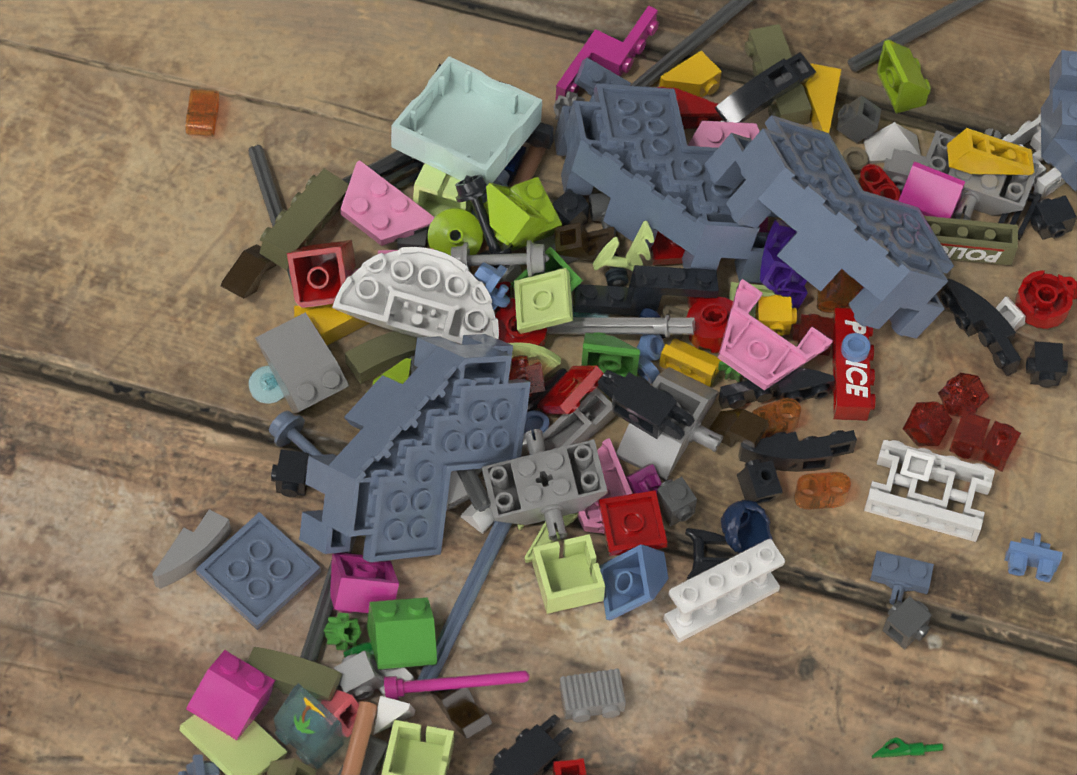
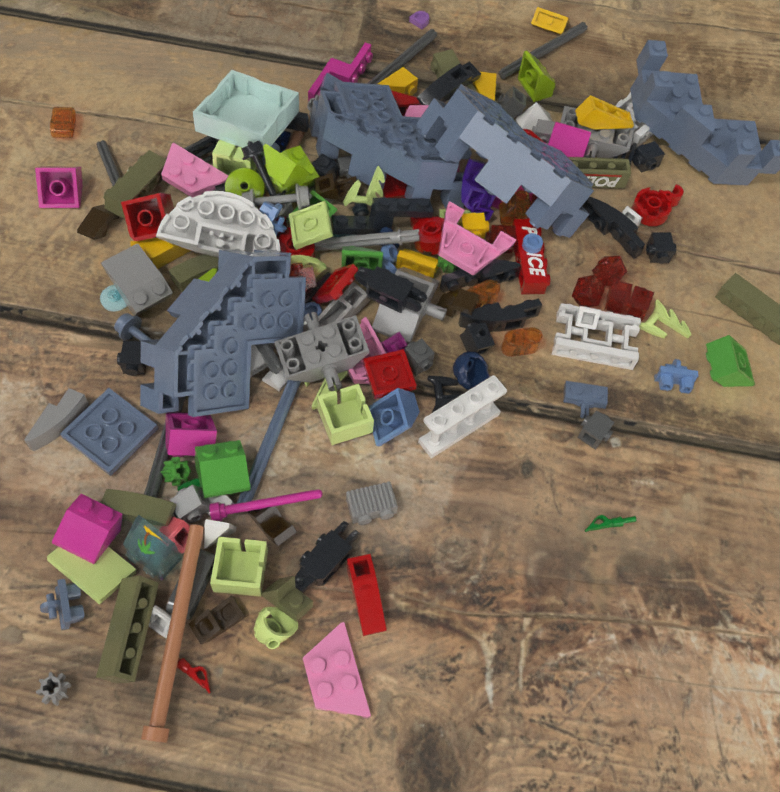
camera: 10 degrees left, 0 degrees up
(197, 214) = (59, 186): none -> dark pink slope
(1030, 463) = (670, 320): none -> yellowish green piece

